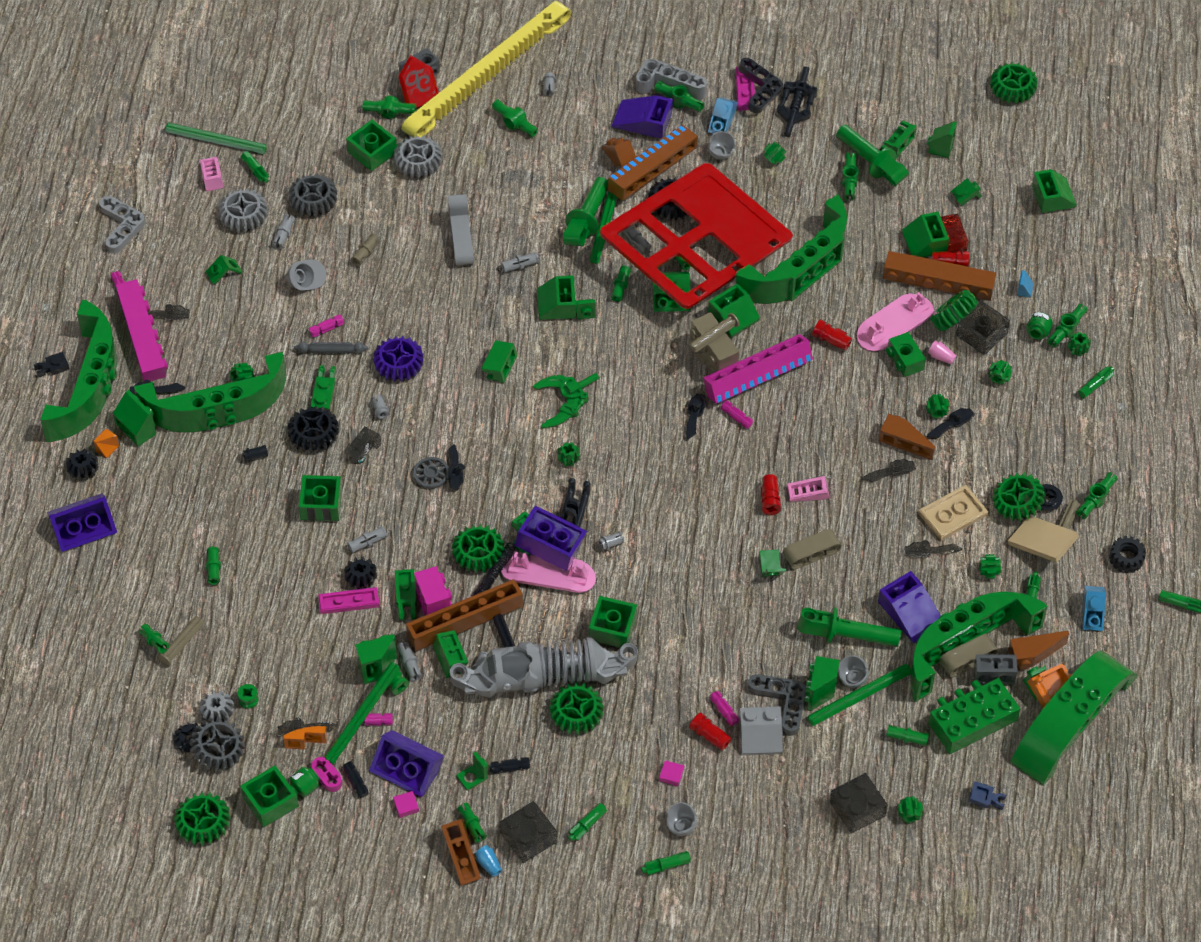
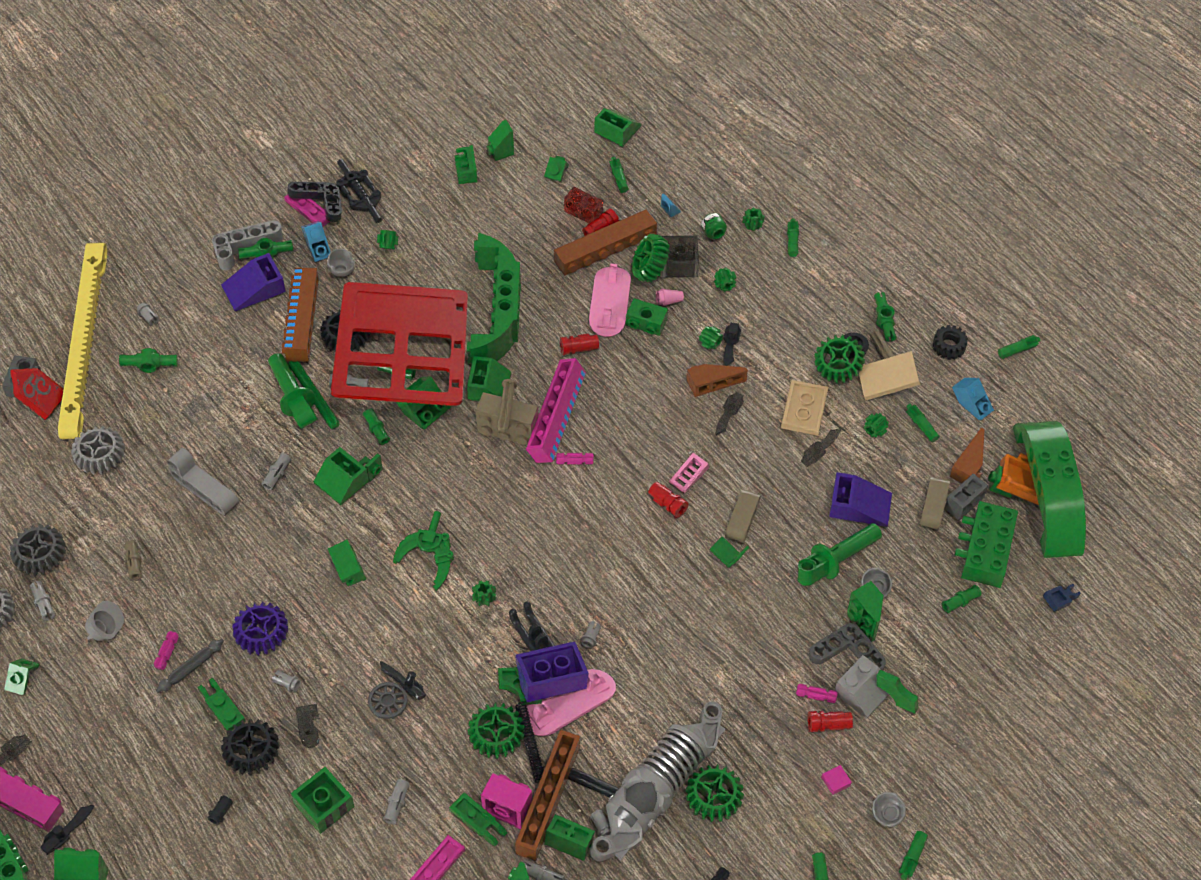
camera: 45 degrees left, 0 degrees up
(218, 404) = (144, 799): green slope -> none
(241, 371) = (136, 751): green gear -> none
(360, 573) = (419, 828): black gear -> none
(371, 145) = (48, 469): green brick -> none
(389, 107) = (28, 428): green pin -> none
(613, 621) = (668, 698): green brick -> none
(619, 151) = (264, 324): dark orange slope -> none
(695, 409) = (540, 479): black piece -> none
(777, 749) = (894, 687): none -> green tile
(850, 176) = (461, 217): green pin -> none
(858, 803) = (990, 680): clear smoke brick -> none
(859, 694) = (895, 598): green axle -> none
(882, 162) = (478, 189): green piece -> none
(910, 809) = (1028, 652): green gear -> none
(926, 235) = (566, 219): green slope -> none
(967, 623) = (910, 490): green slope -> none
(1009, 80) = (503, 68): green gear -> none
(1013, 229) = (617, 171): none -> green piece
(1067, 325) = (731, 212): green pin -> none

